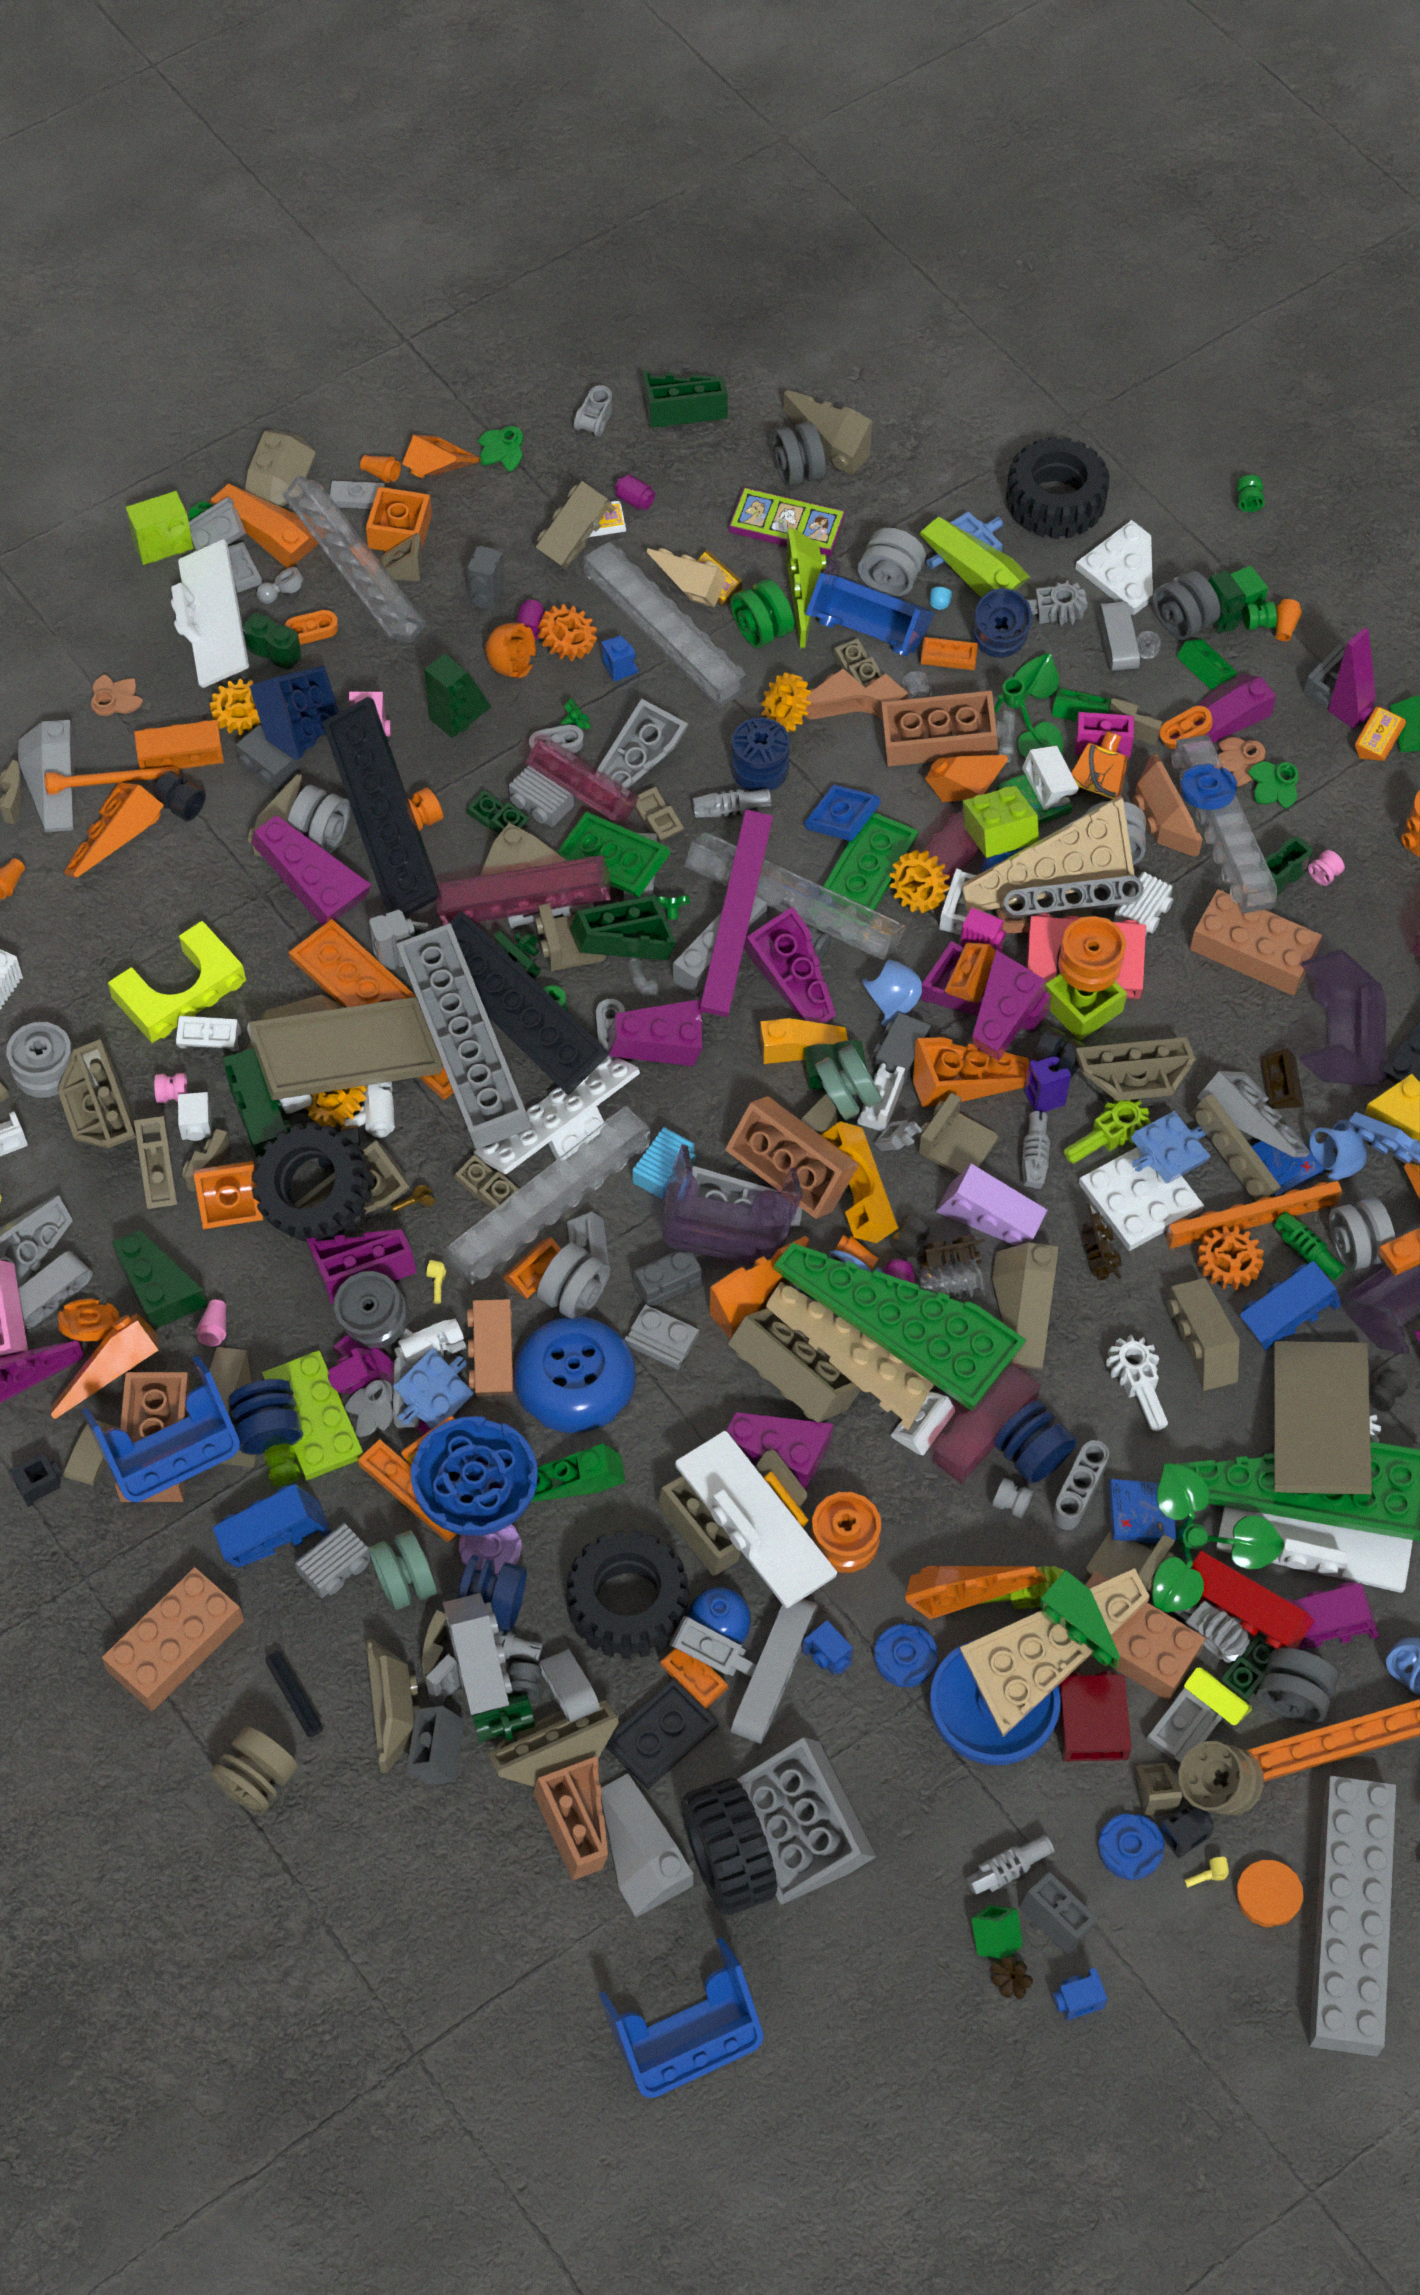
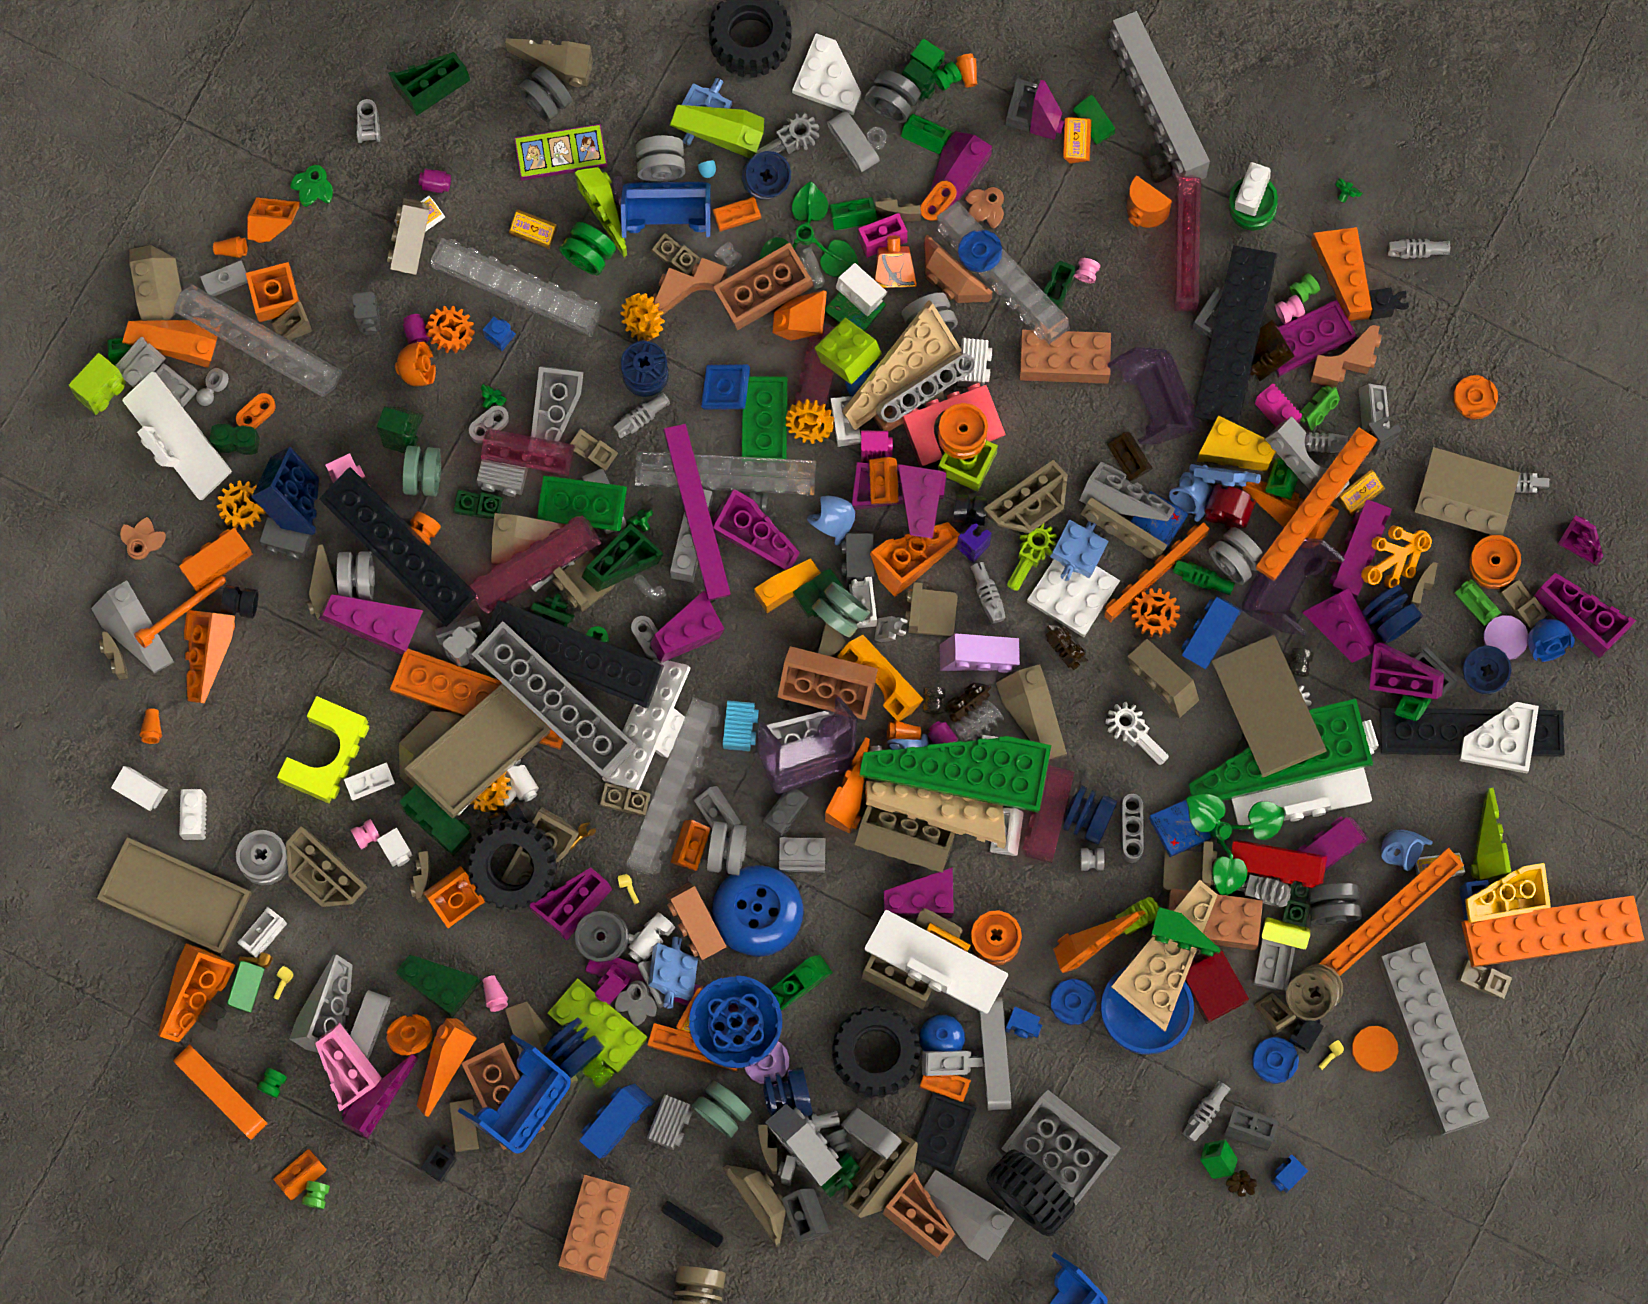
camera: 25 degrees left, 15 degrees up
(155, 1162) = (387, 894): dark tan slope -> none
(453, 749) = (421, 471): none -> sand green wheel
(697, 580) = (516, 240): tan slope -> none
(1272, 786) = (1017, 217): green plate -> none
(1378, 1175) = (1229, 507): none -> dark red brick

